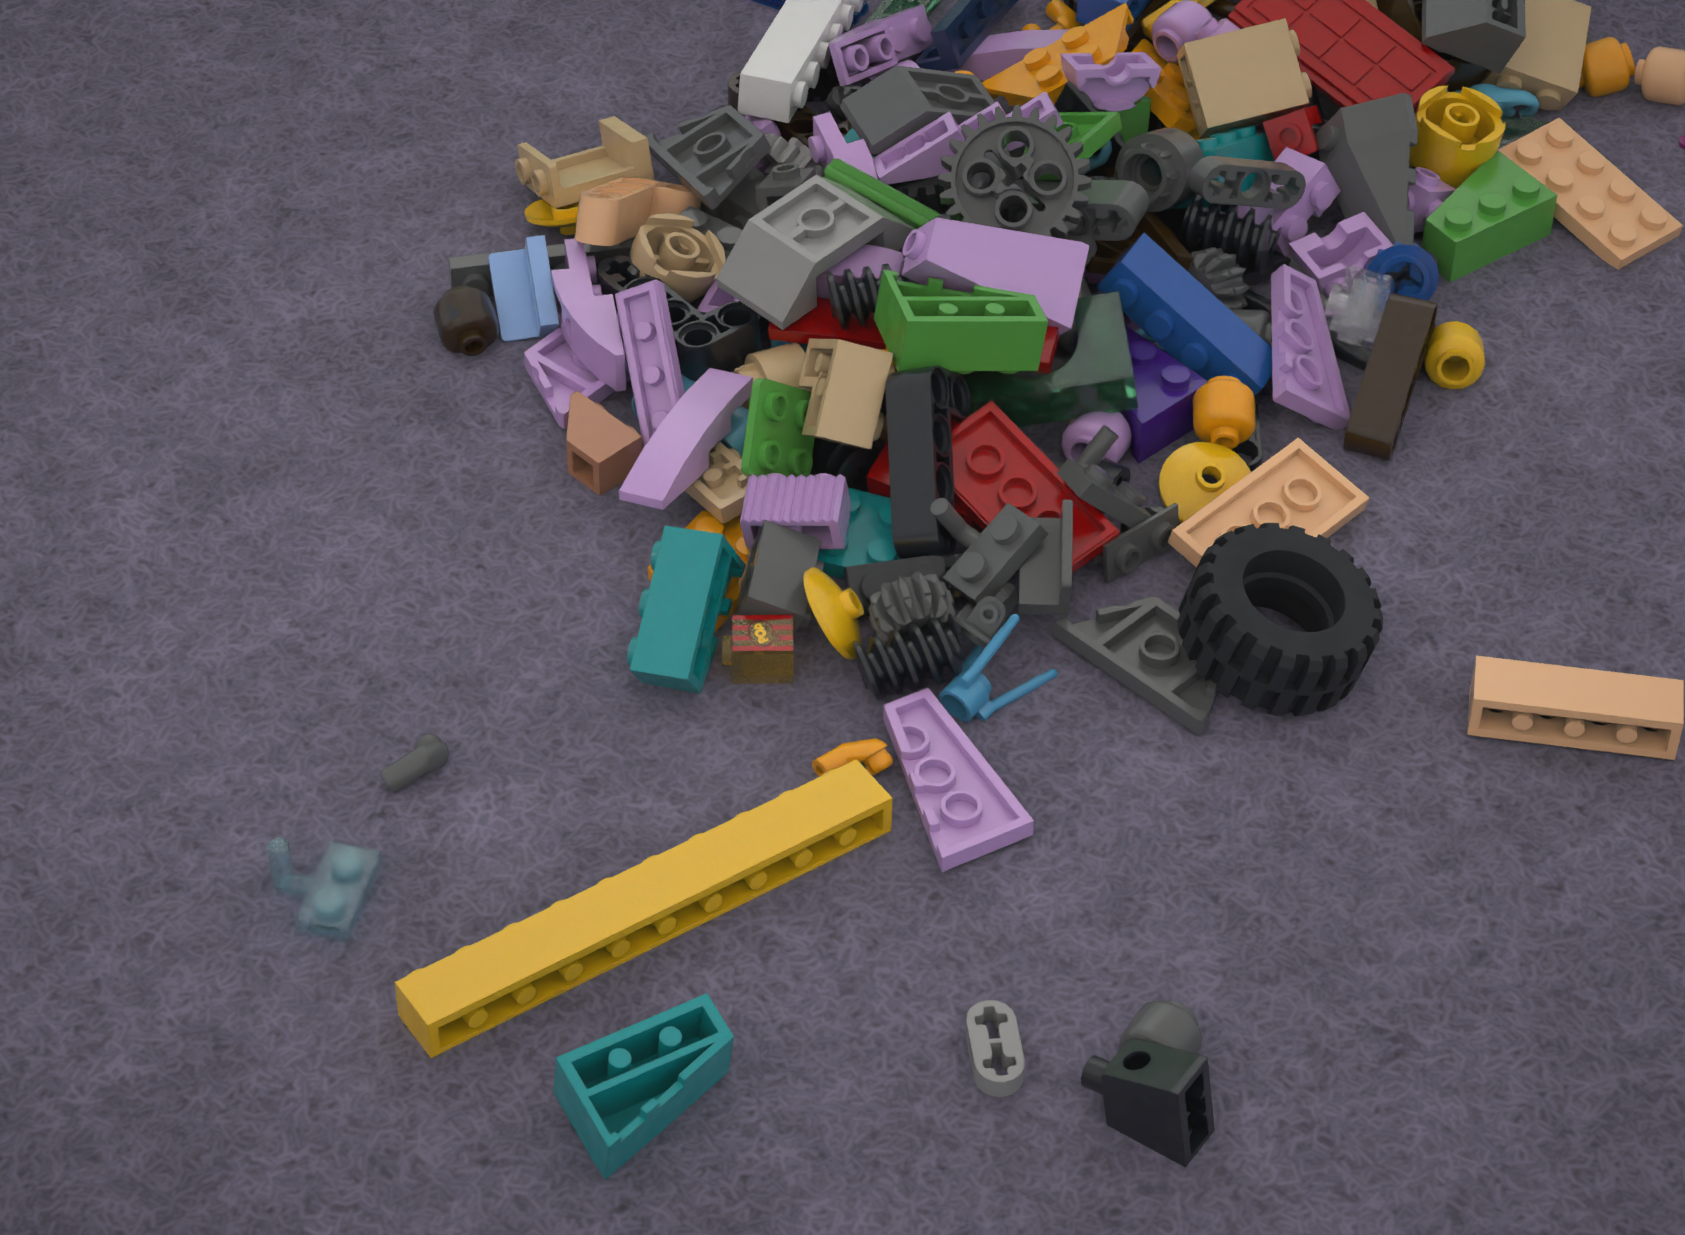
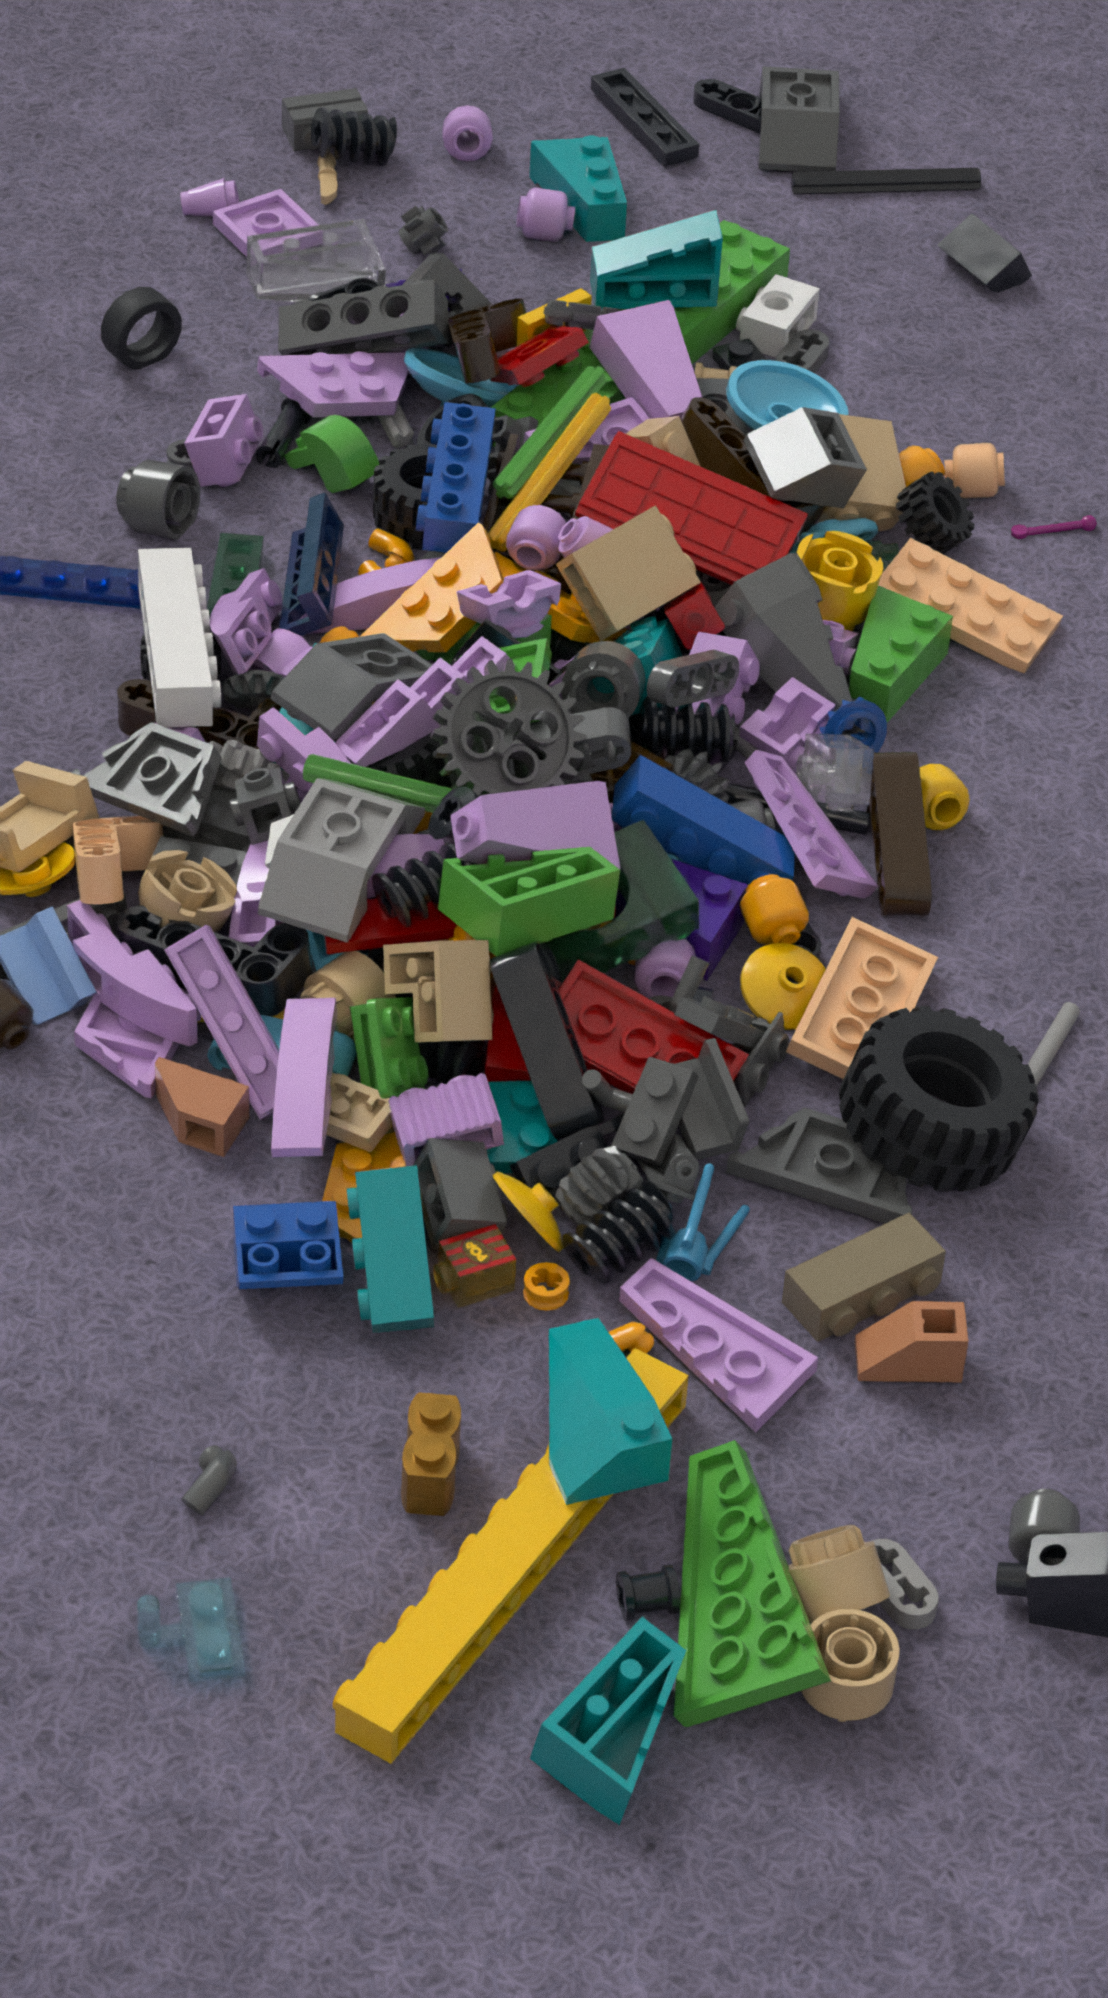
camera: 25 degrees left, 0 degrees up
(593, 581) = (287, 1245): none -> blue slope
(618, 798) = (431, 1454): none -> pearl gold brick
(748, 980) = (648, 1592): none -> black bush
(779, 810) = (601, 1417): none -> teal wedge
(817, 674) = (553, 1276): none -> light orange bush
(818, 1023) = (738, 1603): none -> bright green wing
(890, 1101) = (861, 1663): none -> tan piece
(922, 1014) = (837, 1571): none -> tan piece
(1123, 762) = (863, 1277): none -> dark tan brick
(1135, 837) = (915, 1344): none -> nougat slope
(1431, 614) = (1053, 1040): none -> light grey bar
(1615, 95) = (935, 512): none -> black tyre

